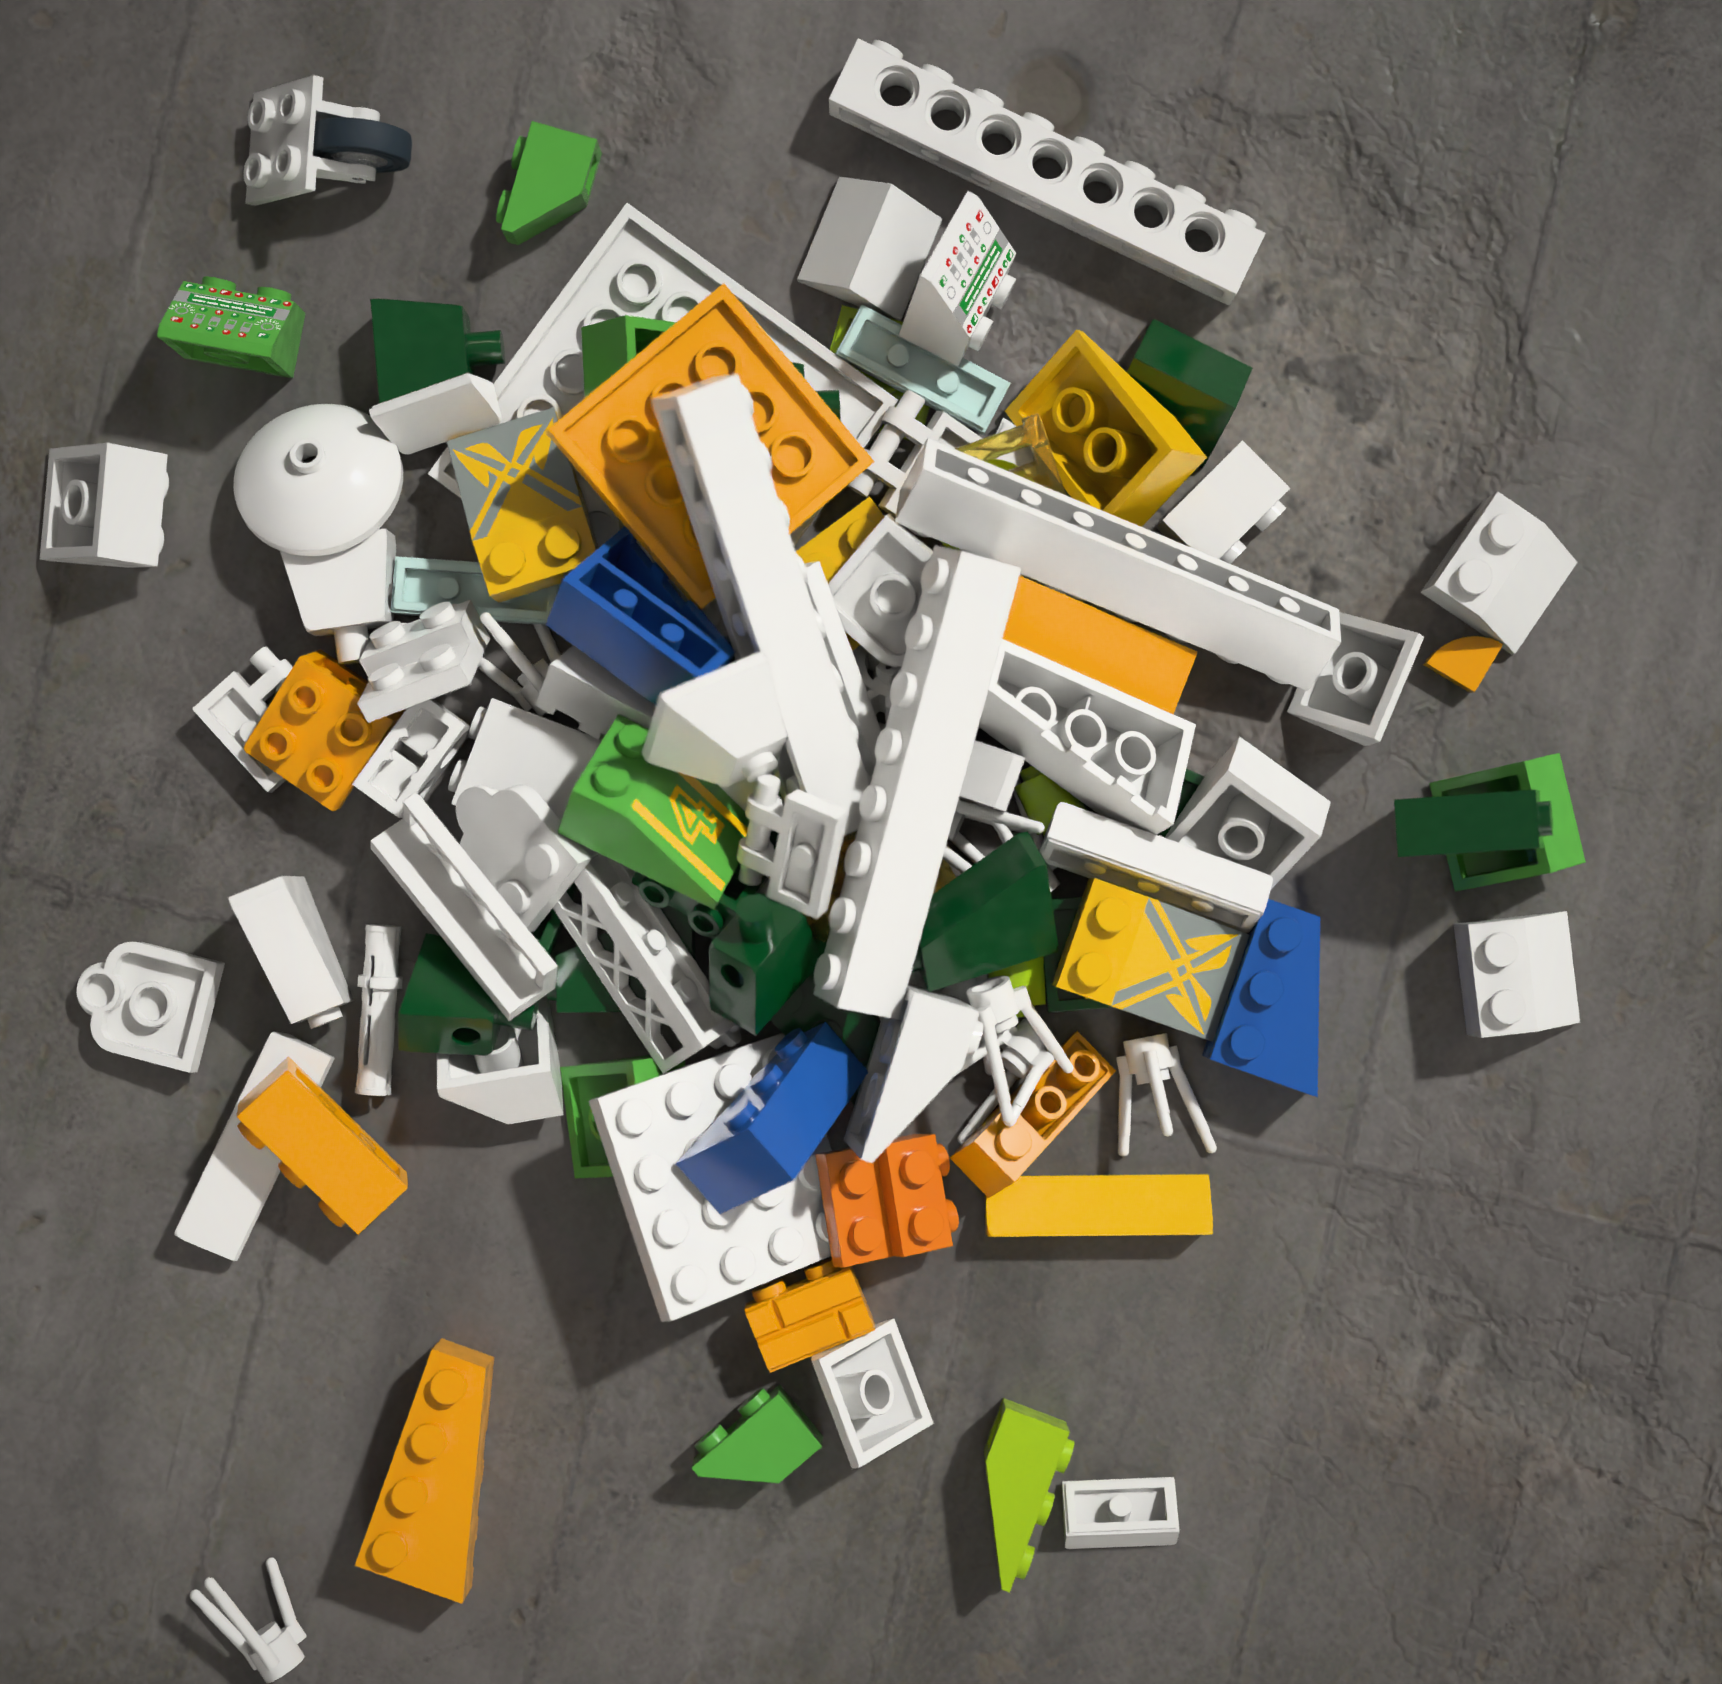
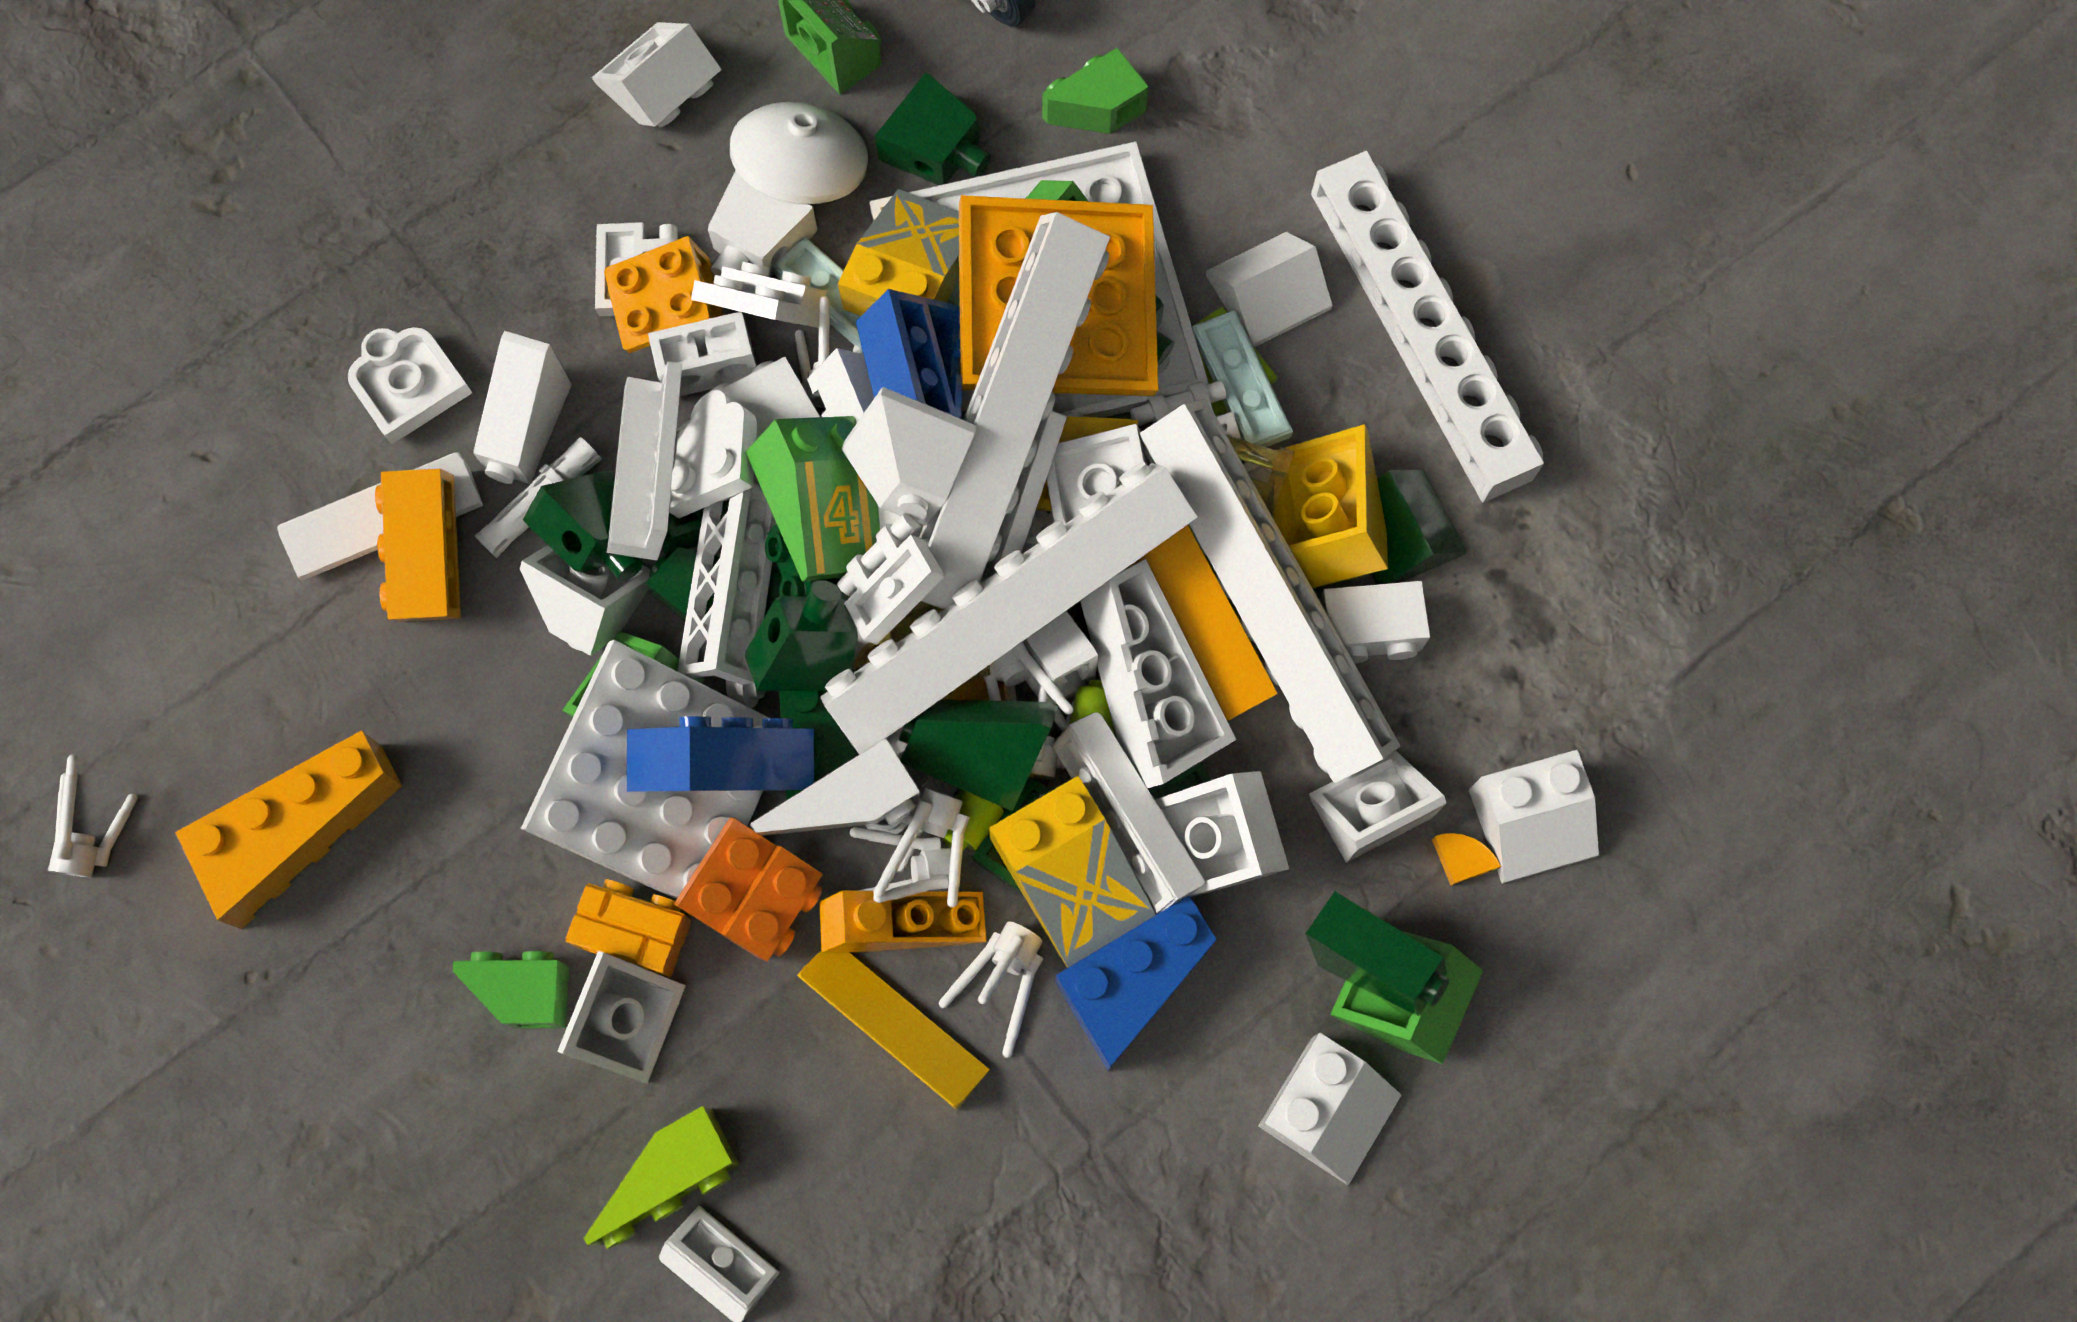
camera: 45 degrees right, 15 degrees down
(438, 413) = (907, 165): white slope -> none
(961, 285) = (1309, 336): white slope -> none

